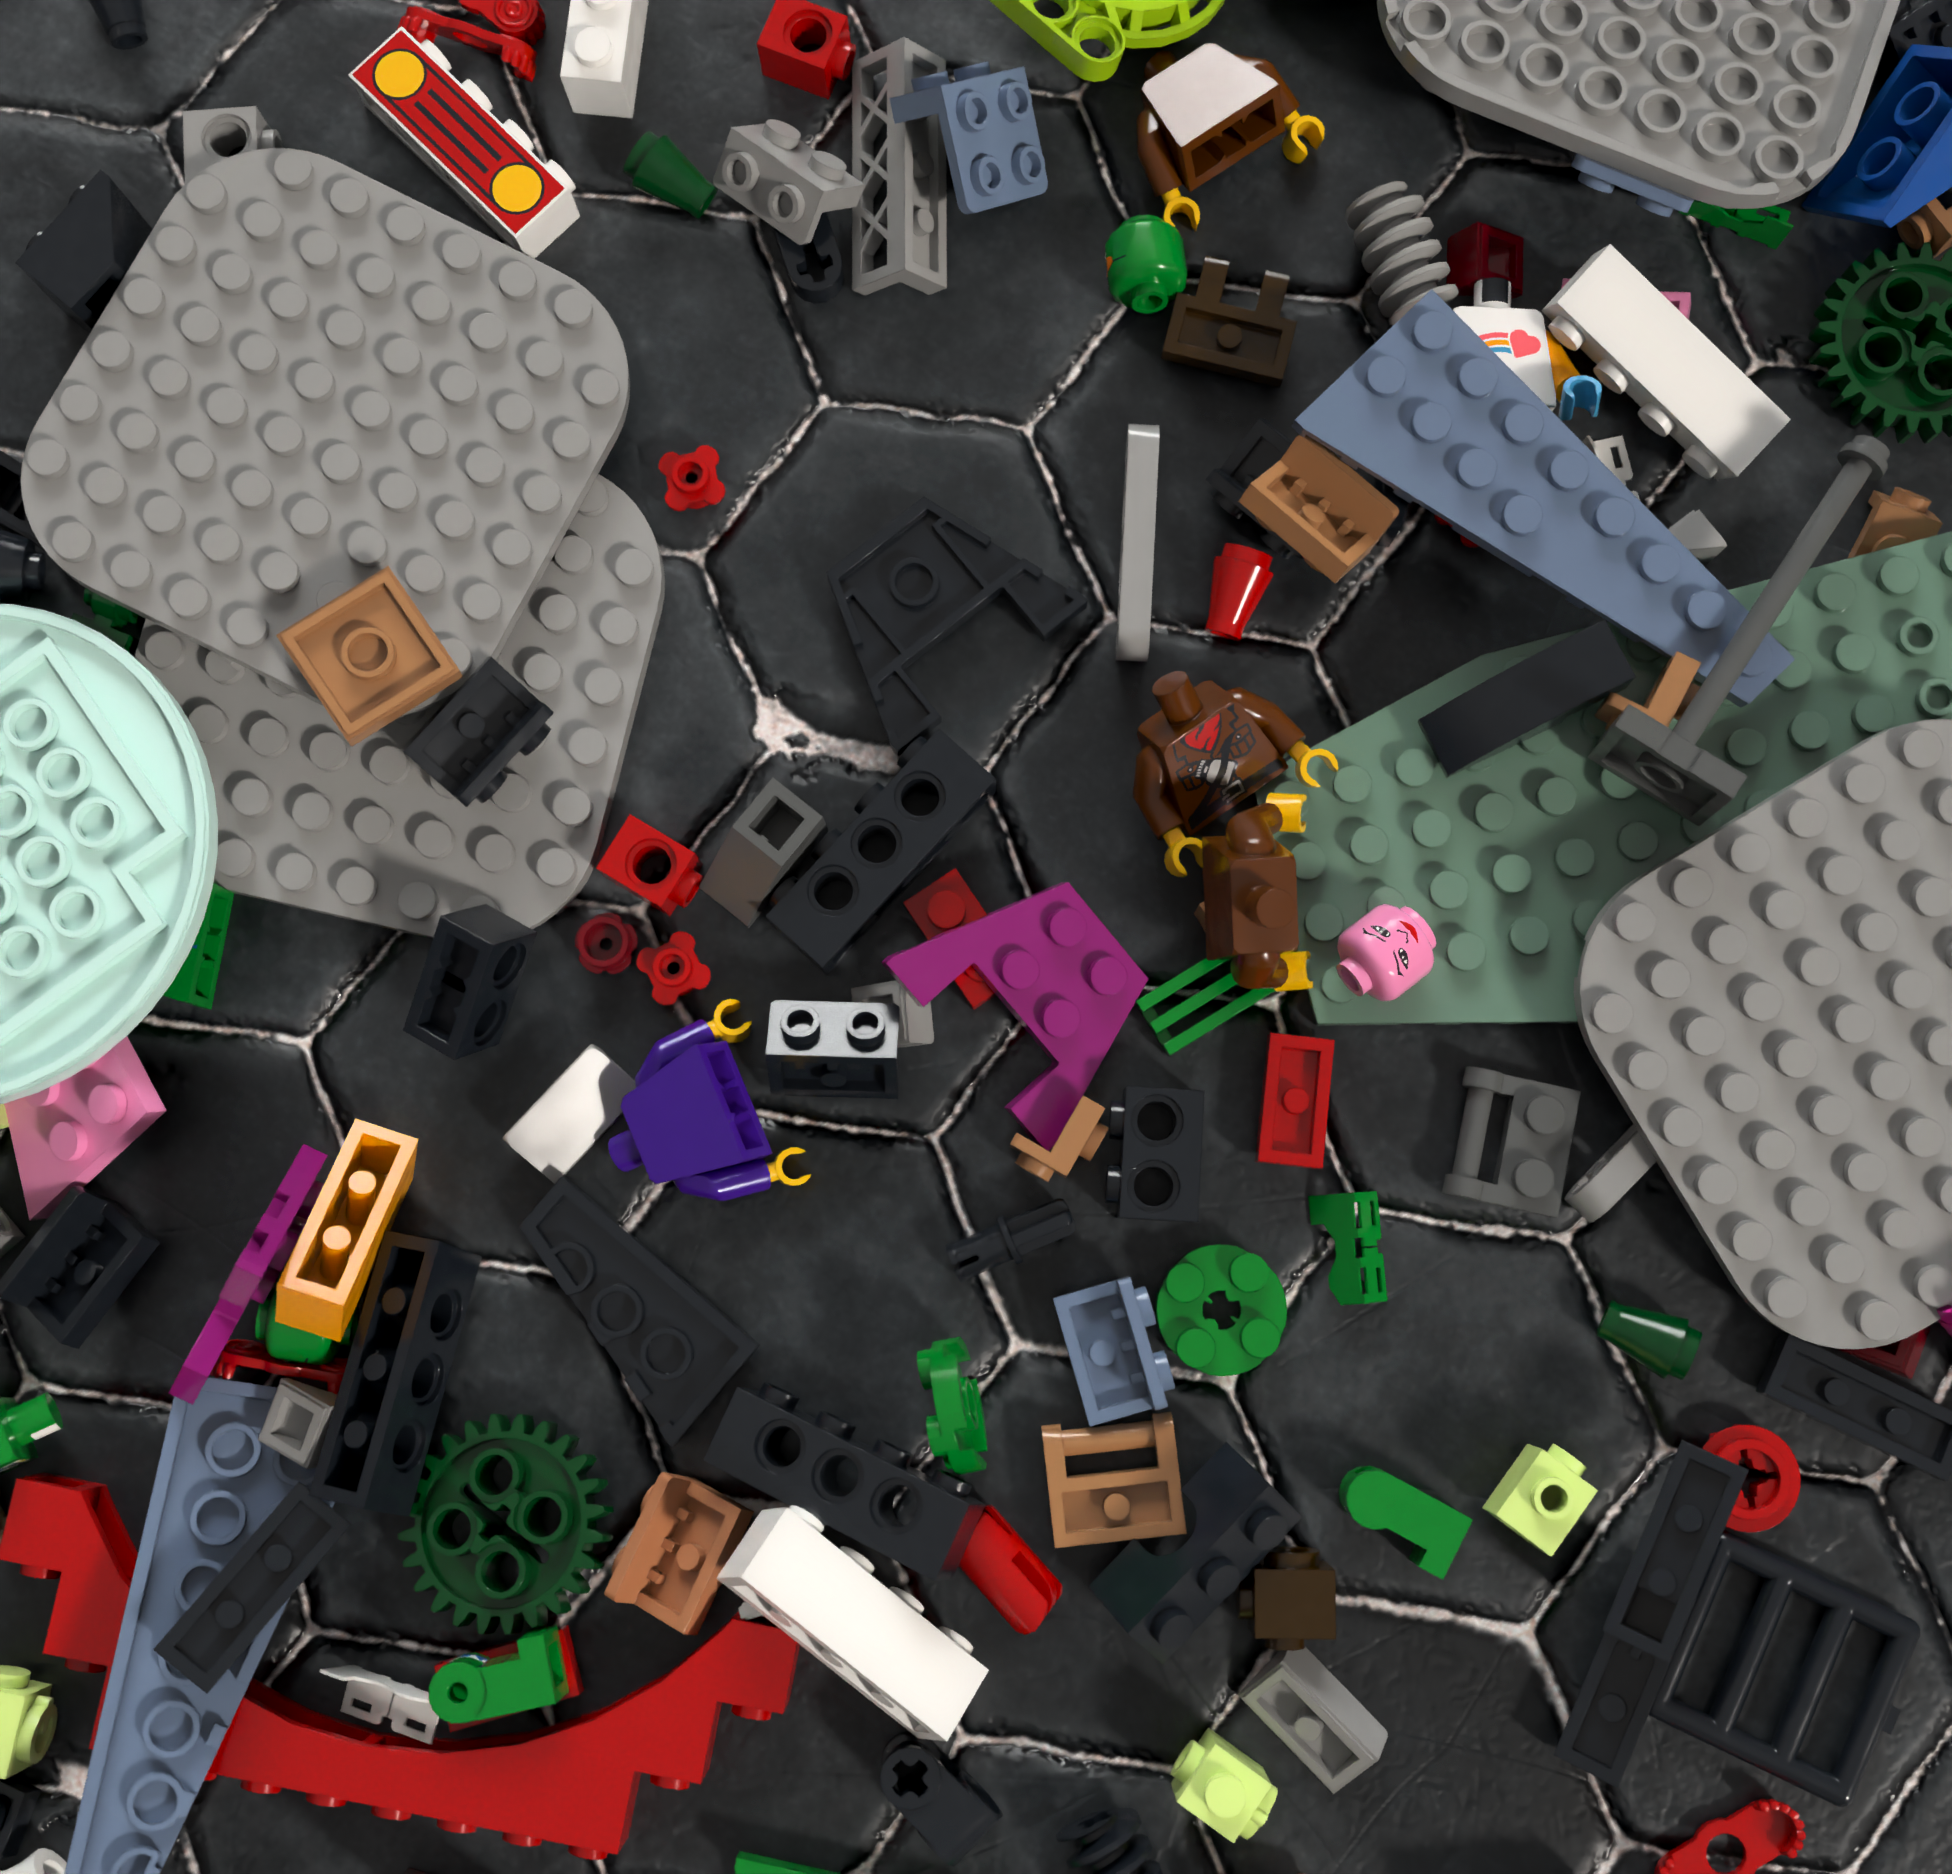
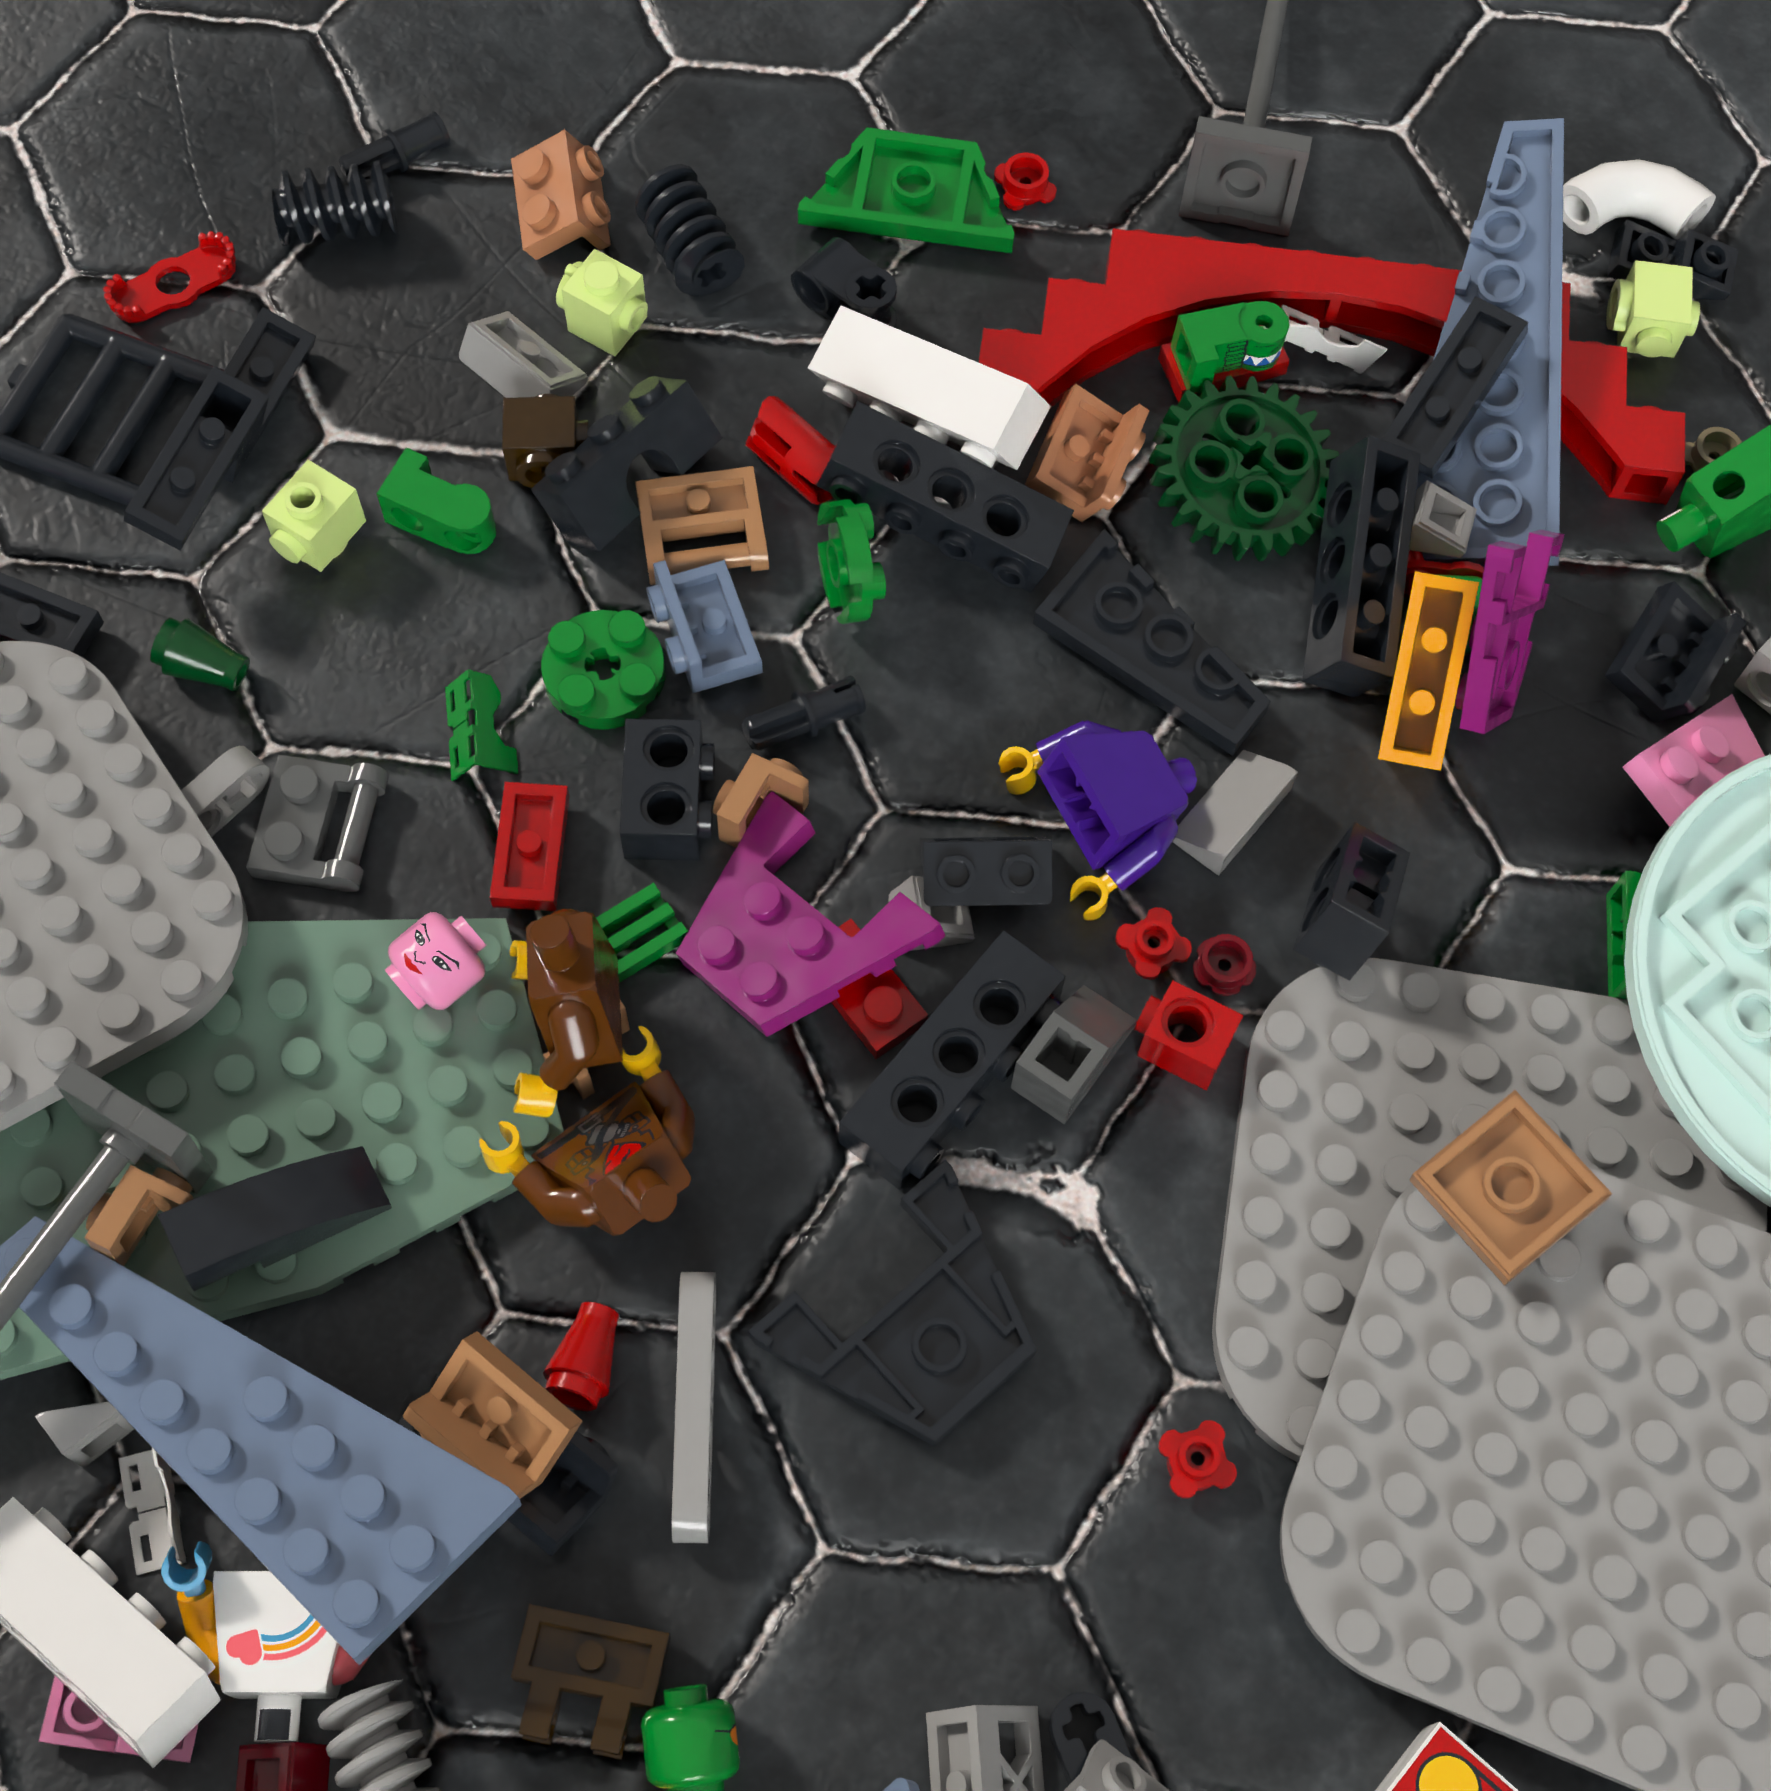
camera: 170 degrees right, 15 degrees down
(479, 733) = (1381, 1139): black bracket -> none
(1773, 1495) = (99, 542): red gear -> none

